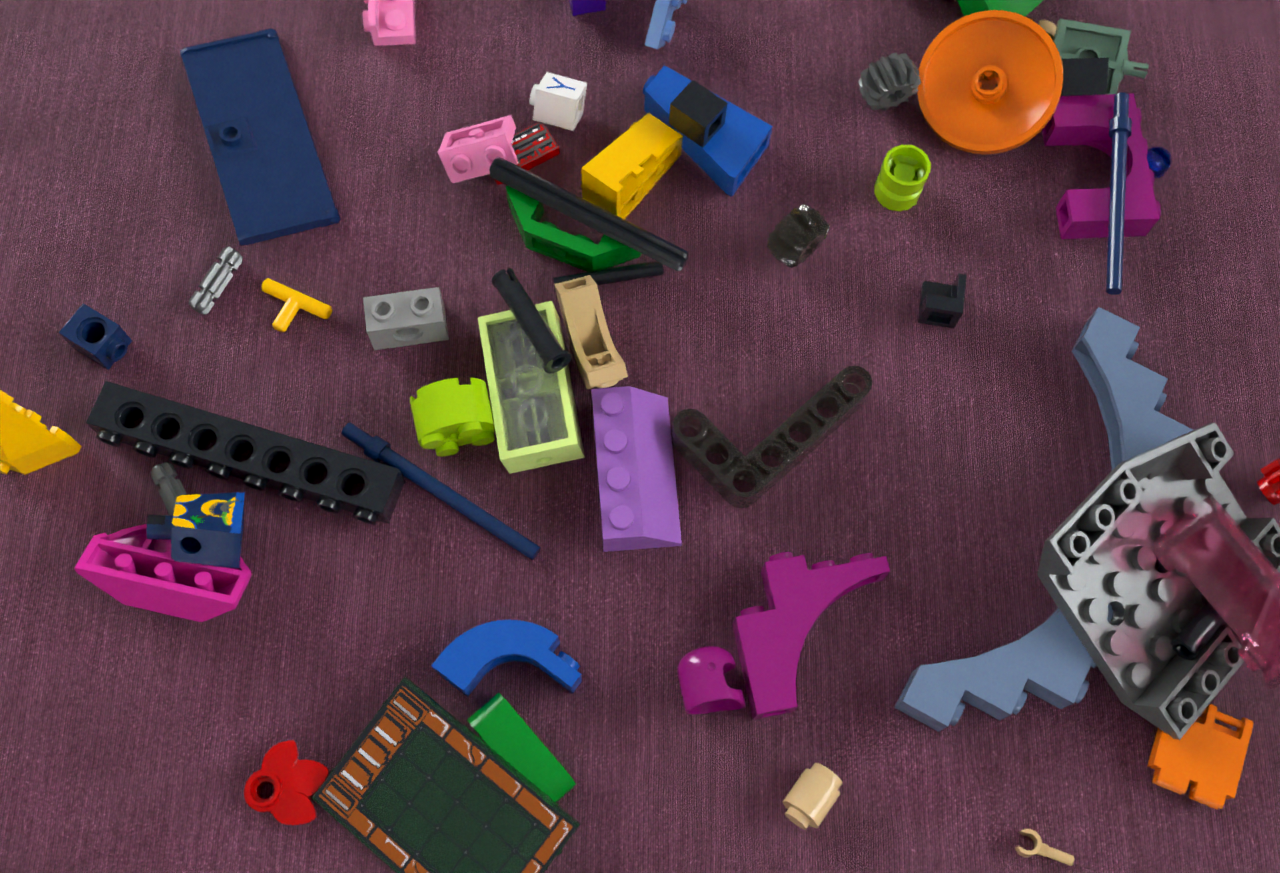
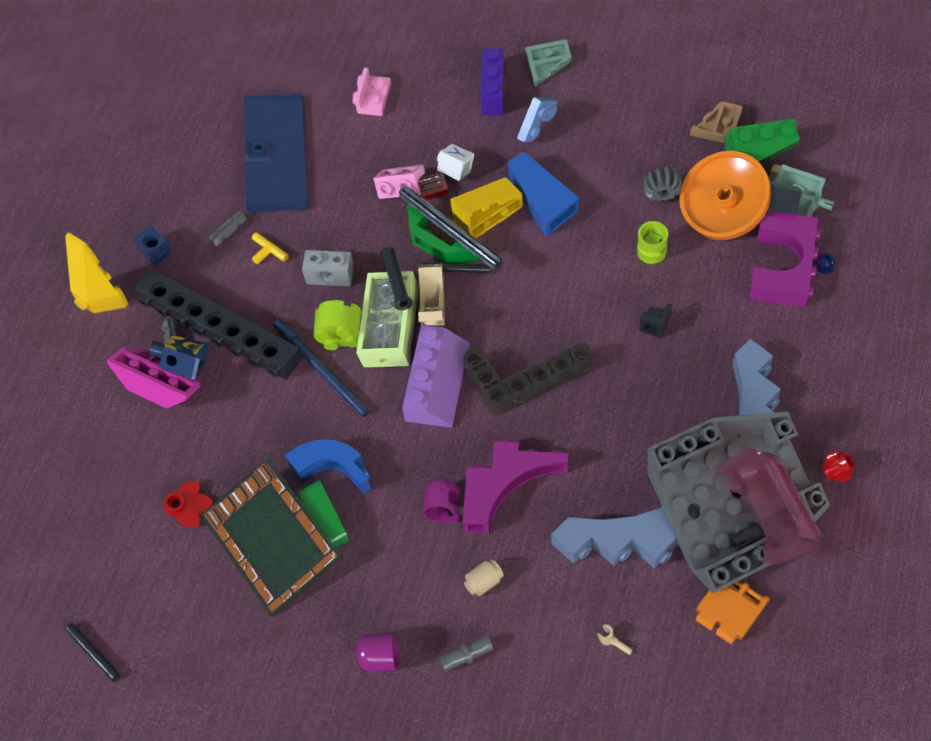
camera: 25 degrees right, 10 degrees down
(697, 113) = (532, 181): black panel -> none
(798, 235) = (575, 264): clear smoke gear -> none
(1119, 130) = (798, 237): dark blue bar -> none

